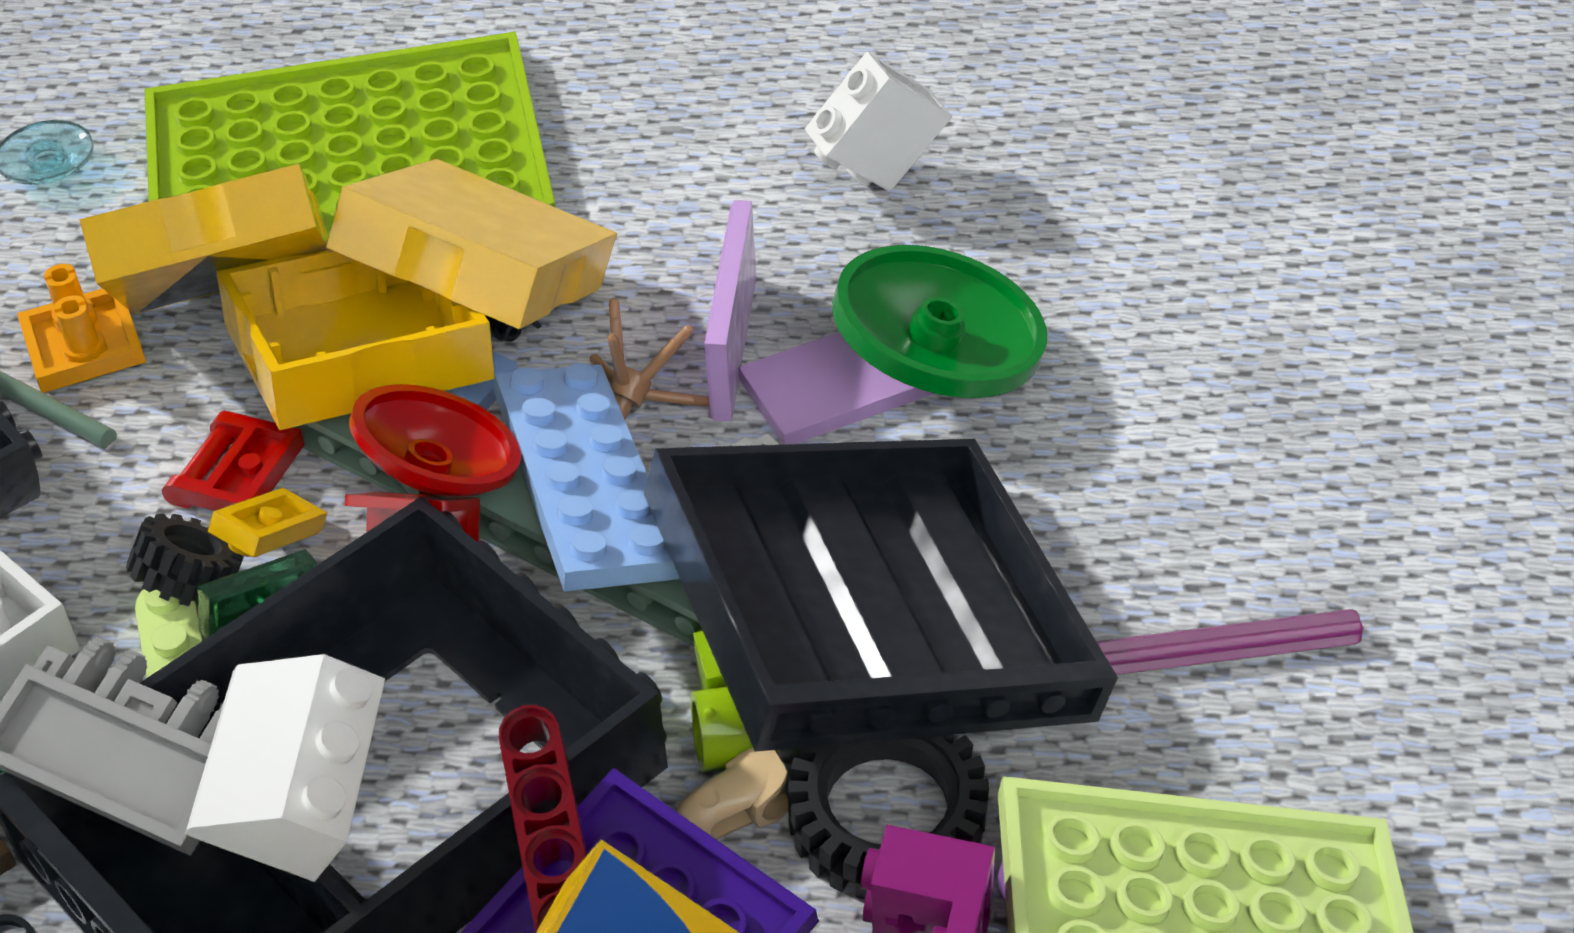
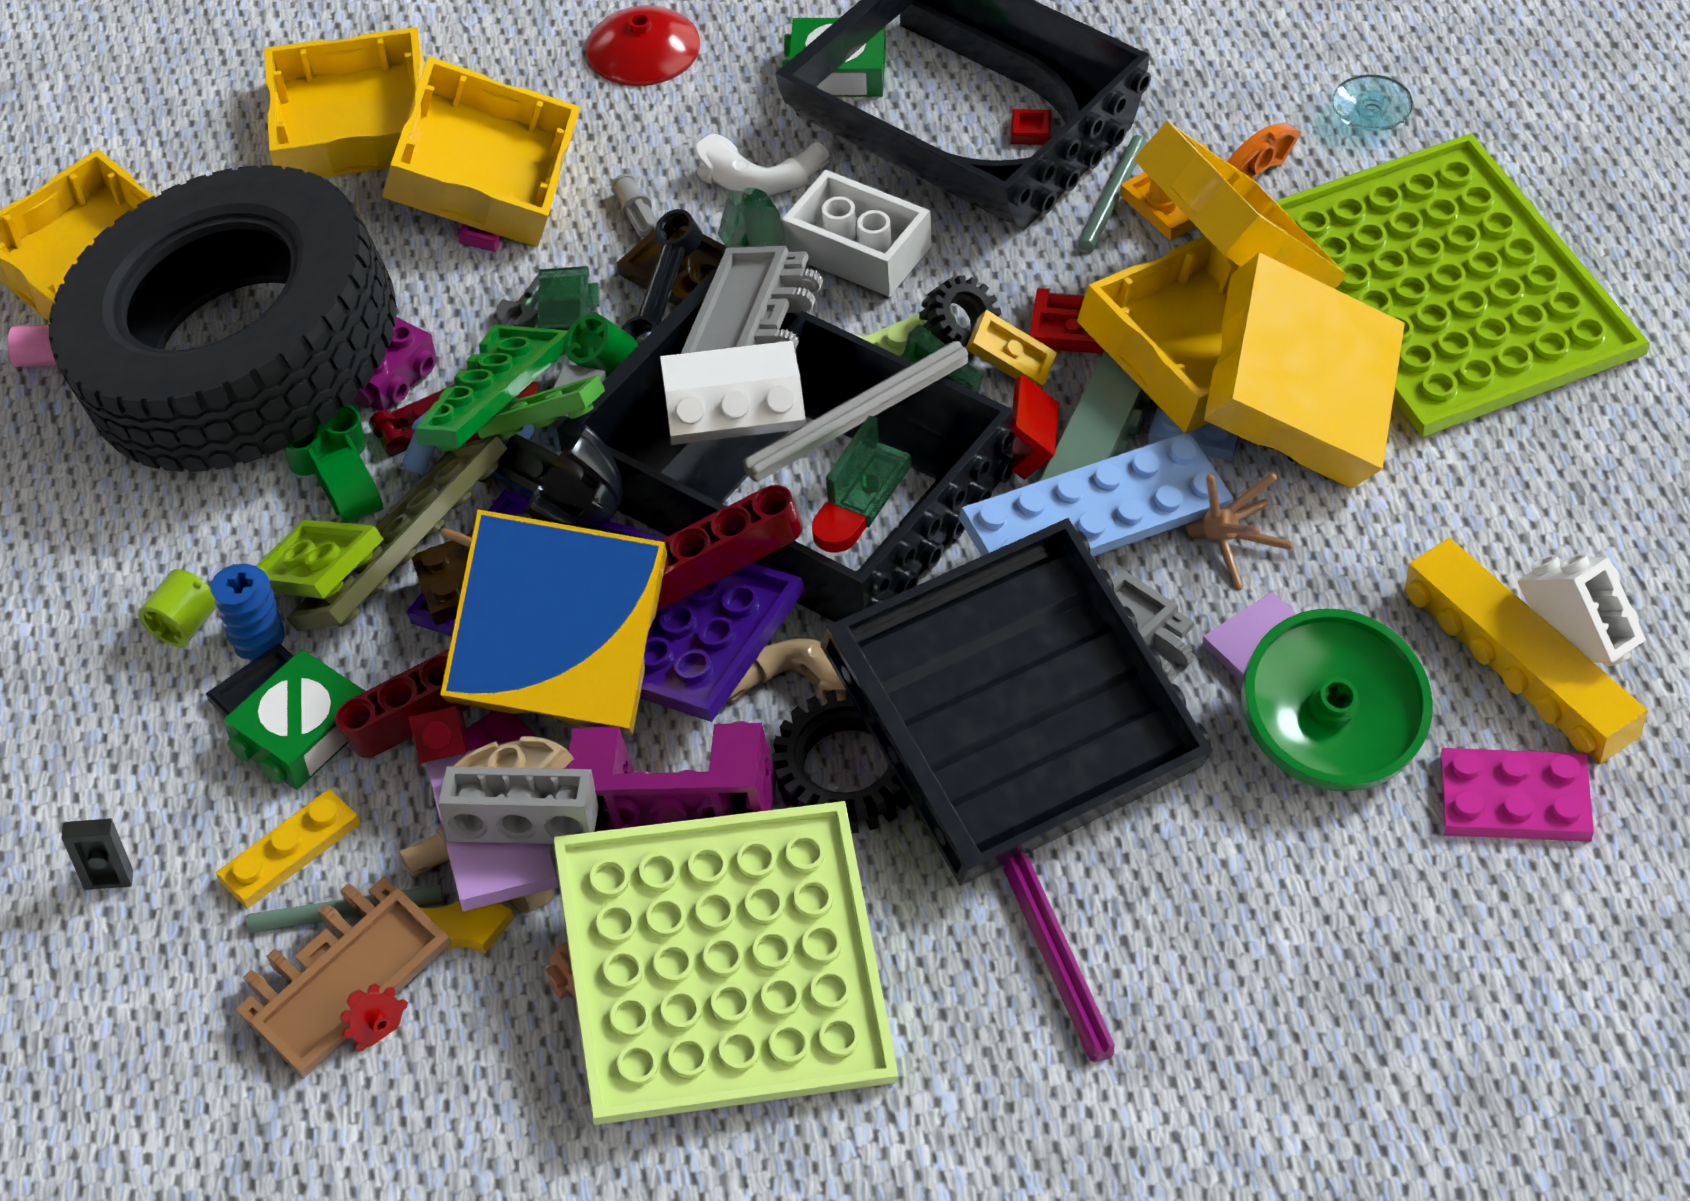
camera: 80 degrees right, 5 degrees up
(70, 247) = (1265, 149): none -> orange tile
(365, 650) = (855, 411): none -> light grey axle
(434, 440) = (1086, 386): red dish -> none
(492, 649) = (866, 473): none -> clear green panel
(566, 694) = (836, 528): none -> red tile
(730, 311) = (1314, 561): lavender tile -> none
(888, 194) = (1525, 651): none -> yellow brick
(1061, 244) = (1516, 794): none -> dark pink plate

